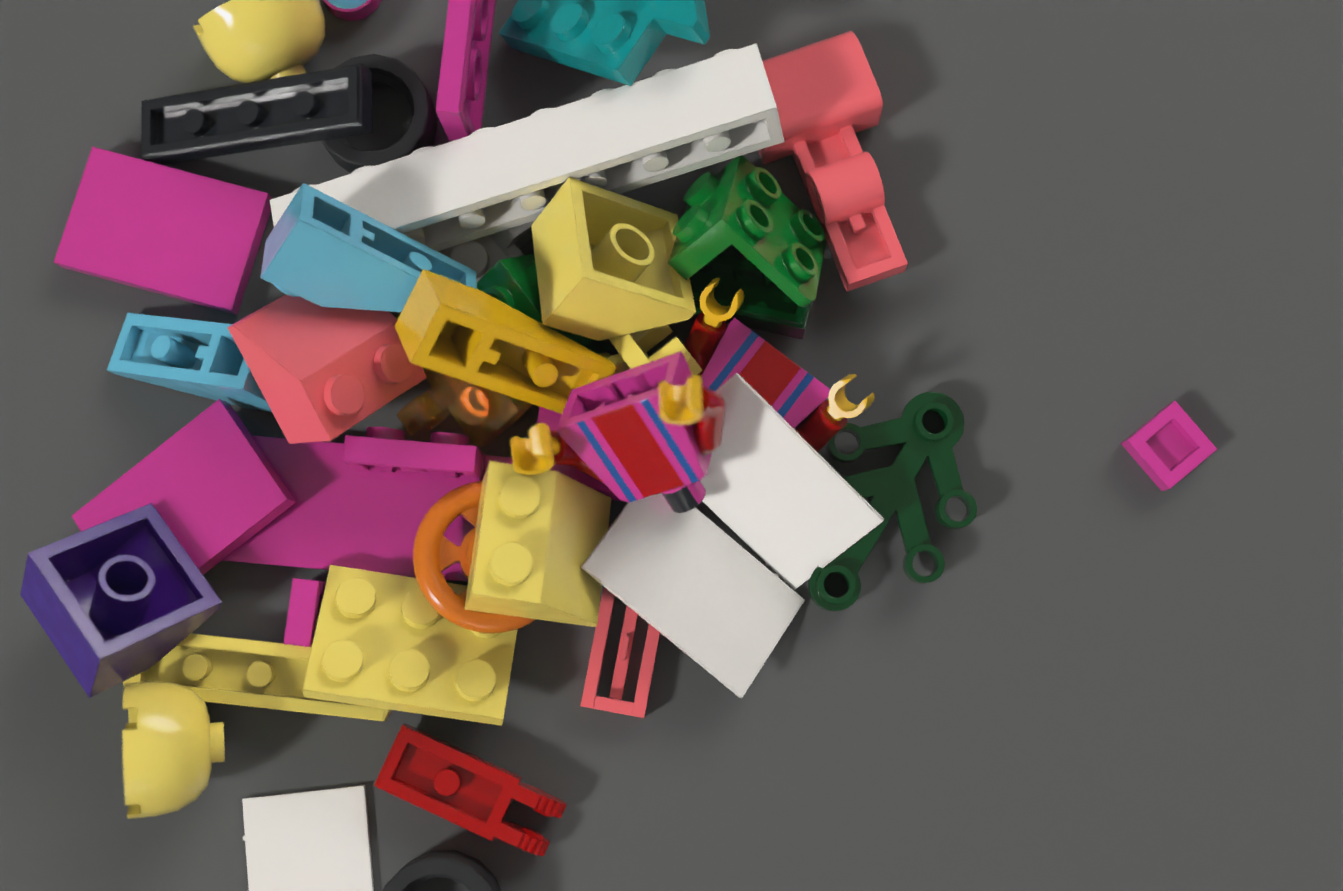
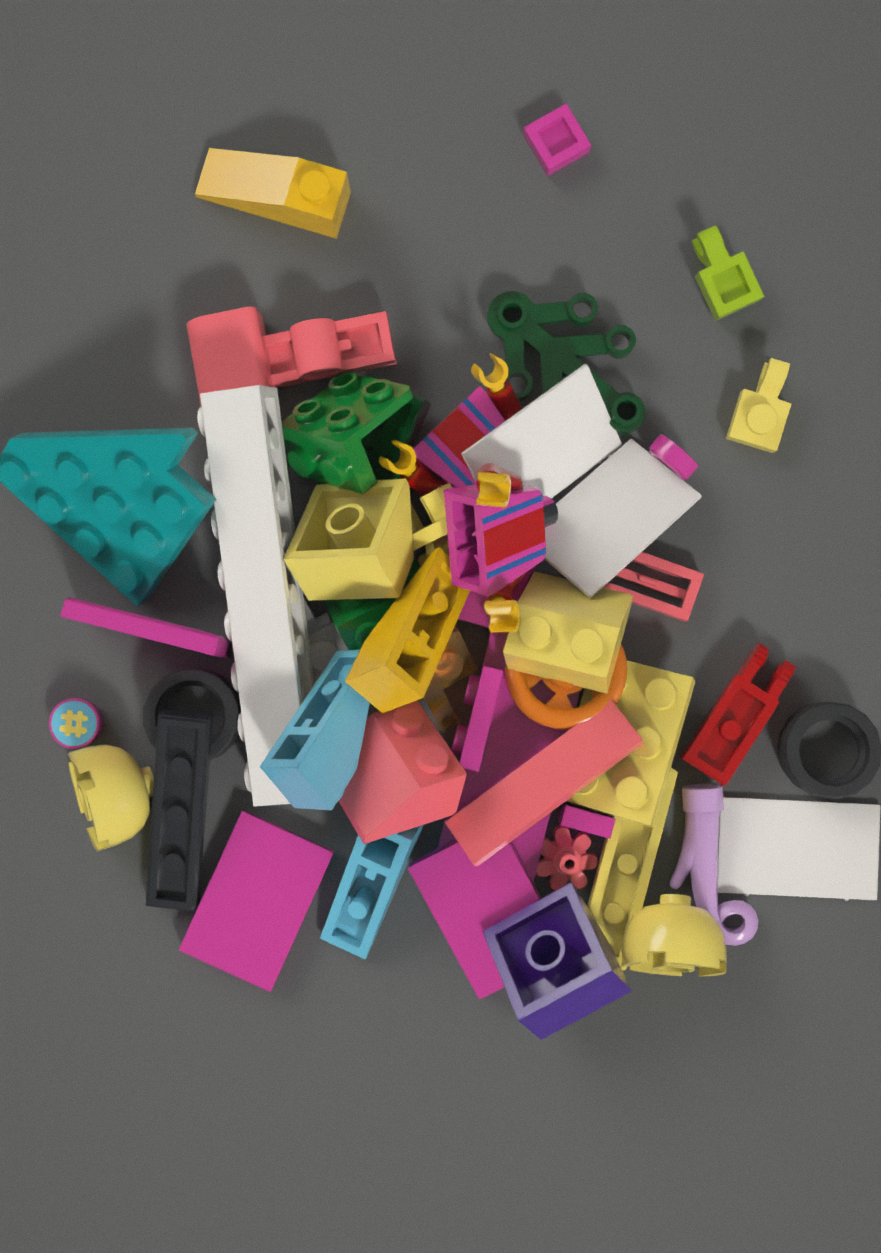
camera: 85 degrees left, 5 degrees up
(257, 599) = (560, 850): none -> coral plant
(284, 768) = (700, 858): none -> lavender plant
(340, 547) = (543, 783): none -> coral tile
(785, 654) = (673, 457): none -> dark pink tile
(860, 763) = (760, 414): none -> light yellow plate
(1028, 691) = (727, 281): none -> lime plate
(1036, 115) = (277, 188): none -> yellow slope

